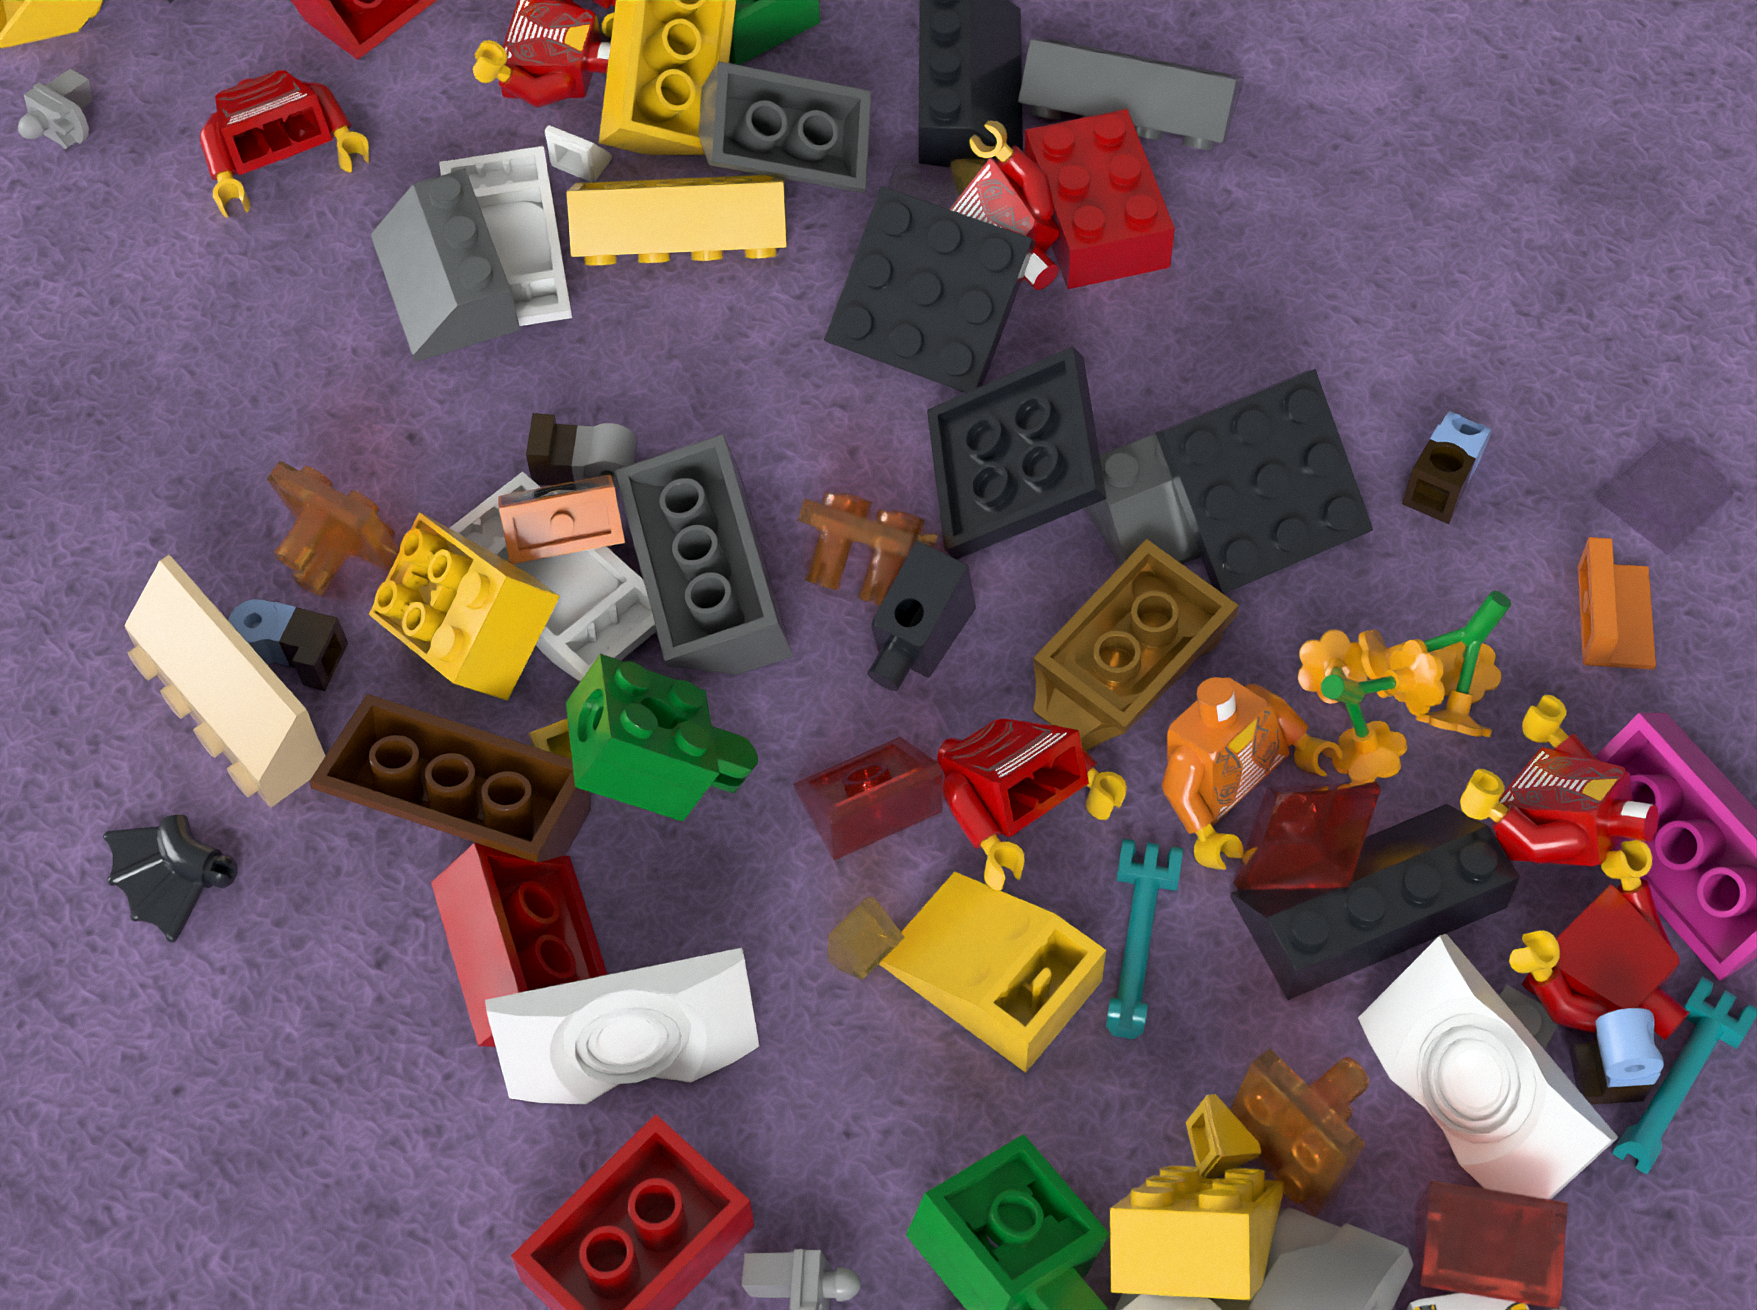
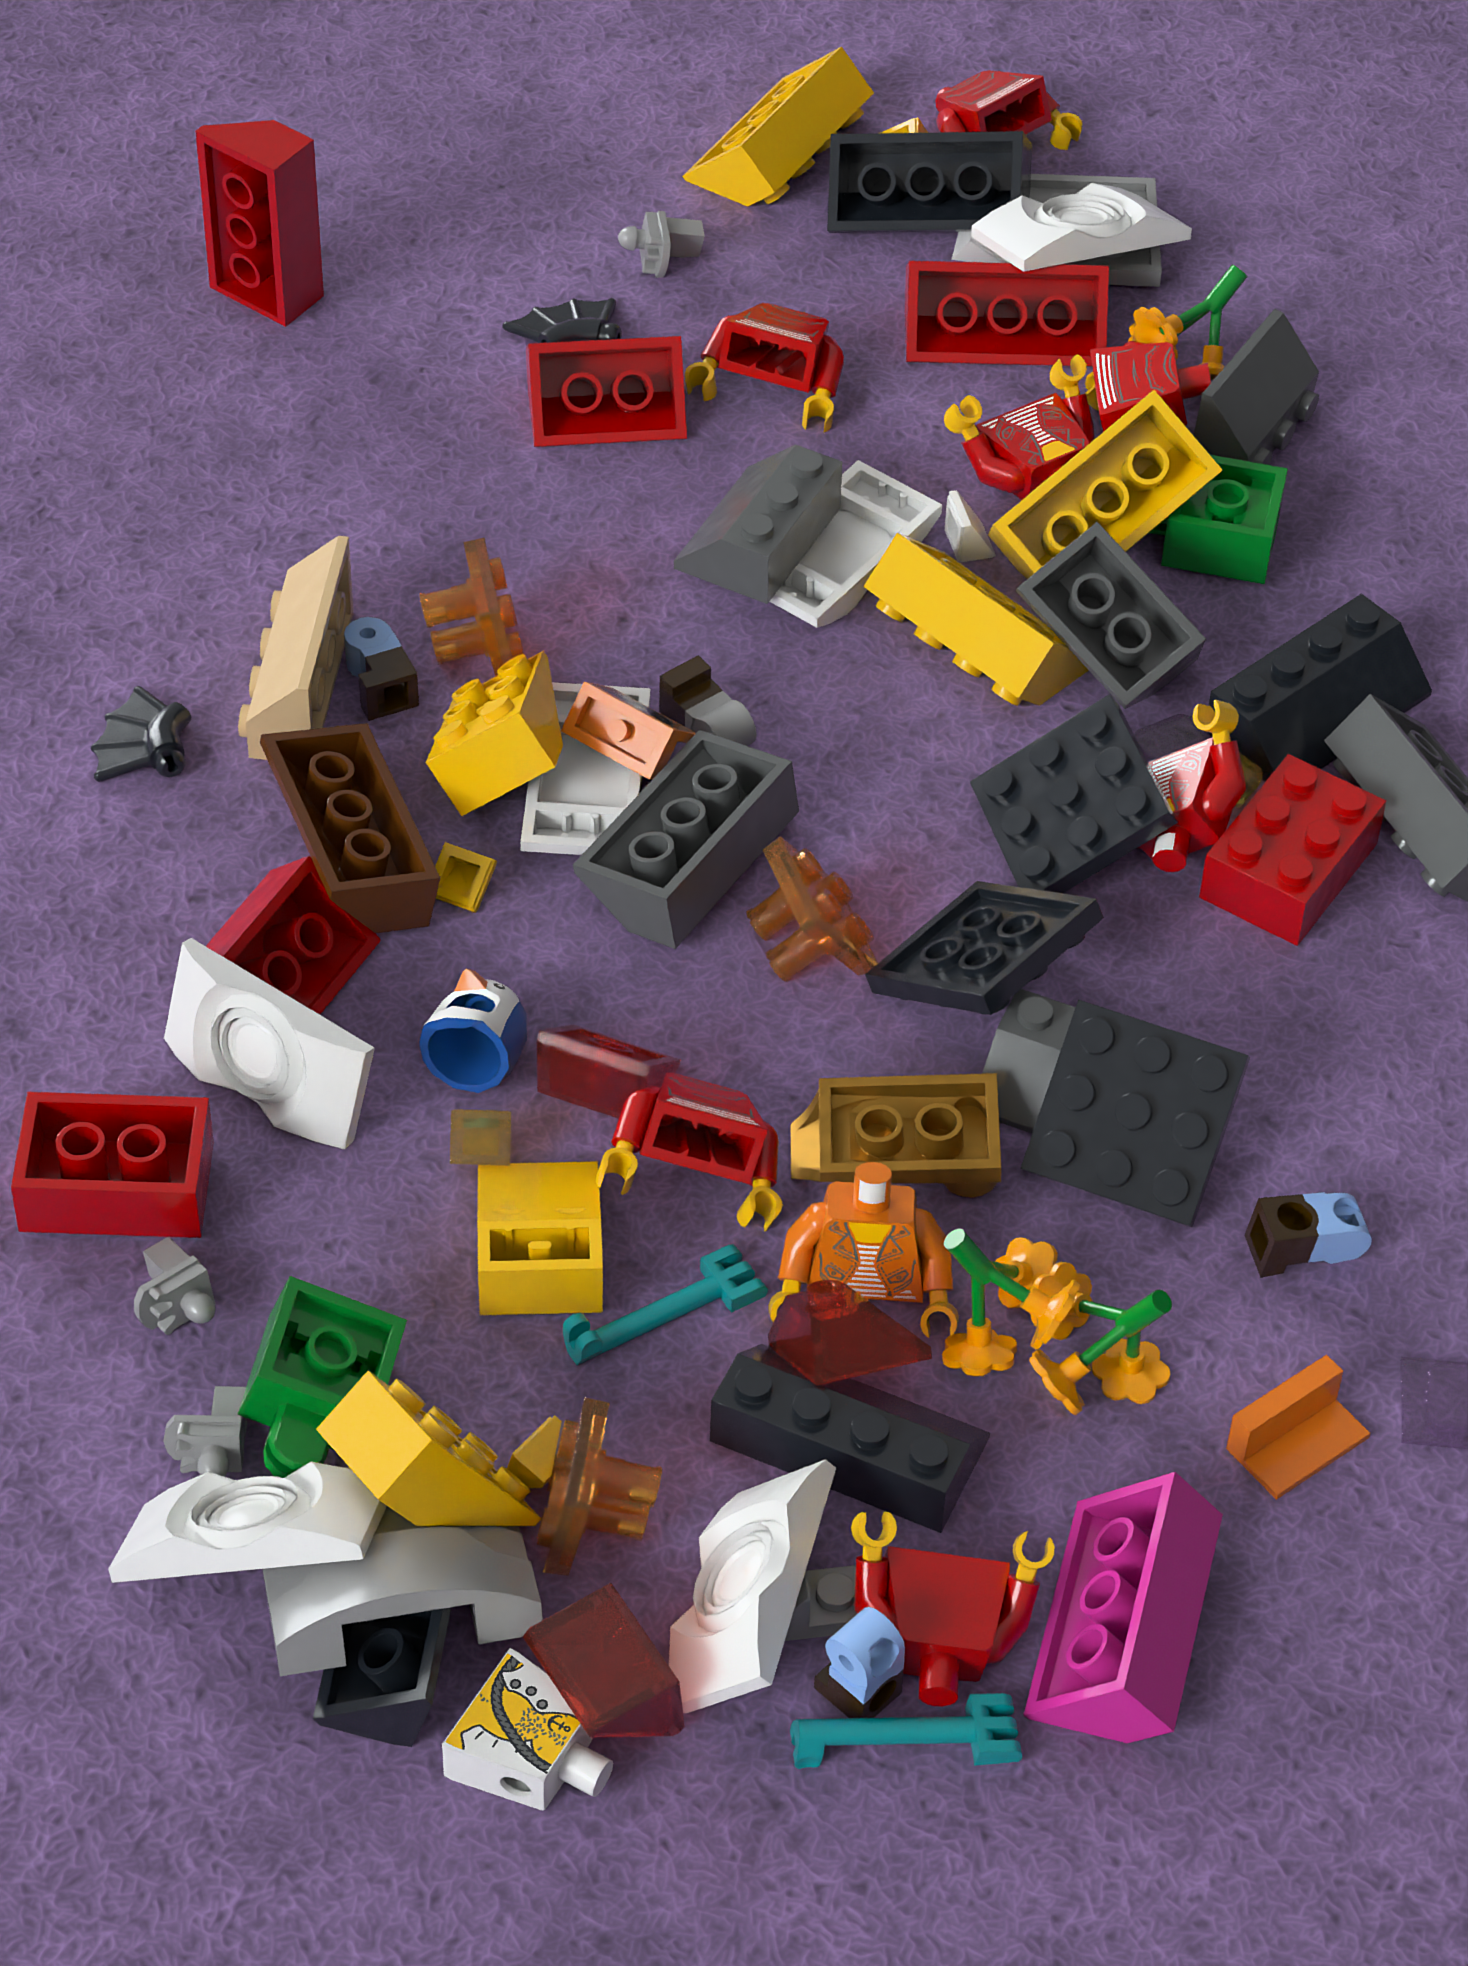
camera: 45 degrees right, 10 degrees down
(66, 237) = (568, 322): none -> black arm
(173, 265) = (606, 391): none -> red slope
(650, 740) = (498, 899): green brick -> none
(761, 861) = (475, 1034): none -> blue piece
(920, 615) = (779, 989): black torso -> none
(1562, 802) = (1037, 1479): red torso -> none

